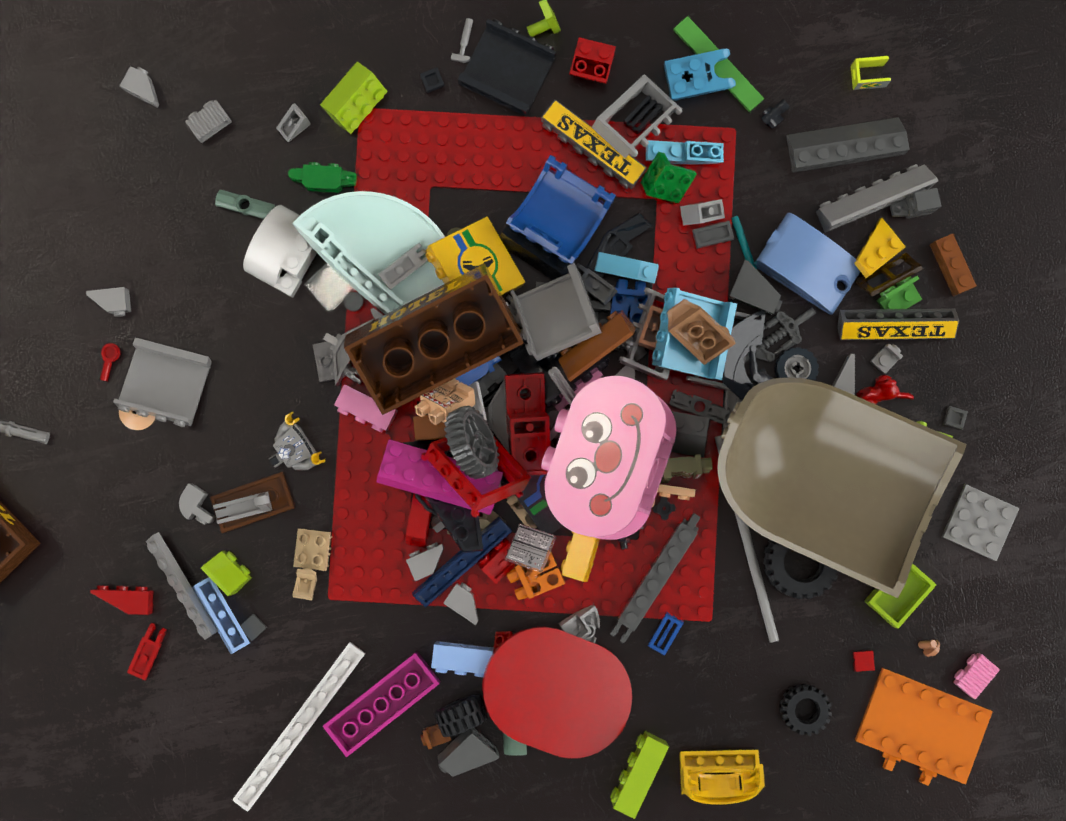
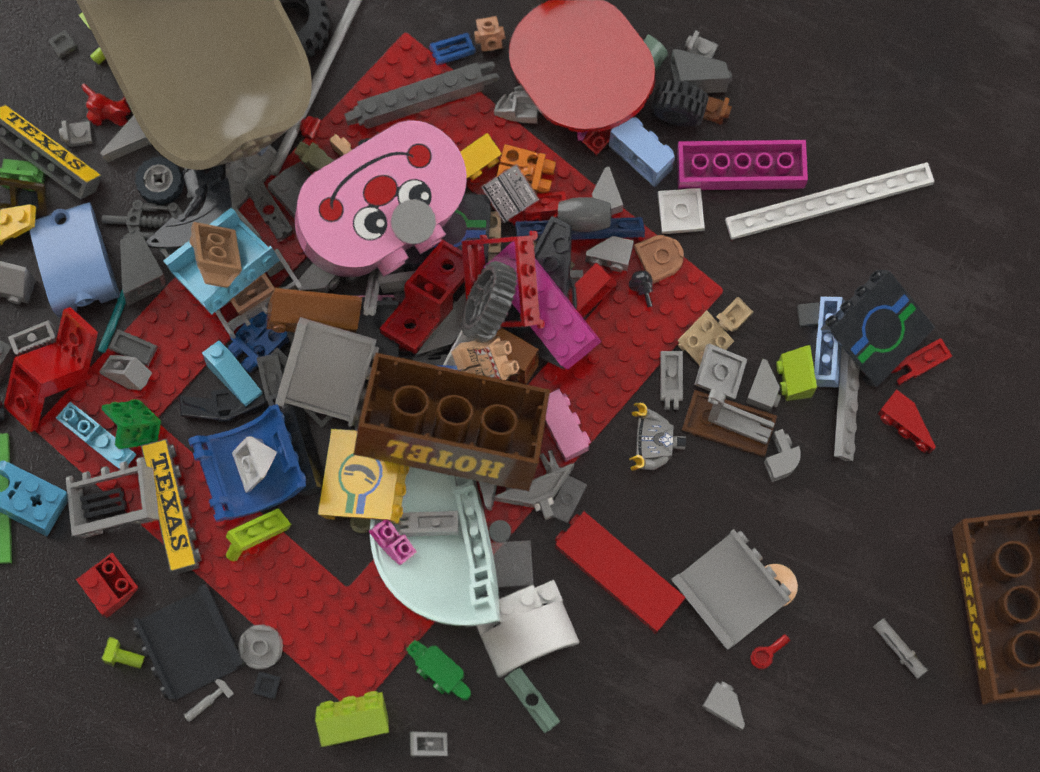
camera: 145 degrees left, 10 degrees down
(191, 651) = (879, 326): none -> black panel
(244, 545) = (764, 389): none -> light grey slope
(250, 336) = (619, 571): none -> red brick
(284, 534) = (720, 371): none -> light grey tile
(316, 503) = (671, 378): none -> light grey hinge
(386, 556) = (642, 283): none -> black piece
(390, 587) = (660, 256): none -> nougat tile
(402, 635) = (681, 211): none -> white plate
(417, 233) = (393, 543): none -> dark pink slope
(457, 101) = (260, 646): none -> light grey tile
(463, 571) = (585, 214): none -> dark grey piece
(482, 776) = (700, 46): none -> light grey bracket
(519, 172) = (255, 532): none -> lime piece
(558, 216) = (253, 461): none -> white slope
(566, 452) = (413, 222): none -> light grey tile
(646, 665) = (489, 34): none -> nougat brick
(718, 494) = (309, 127): none -> red plate
(754, 172) = (50, 369): none -> red bracket
(785, 186) = (33, 338): none -> light grey brick

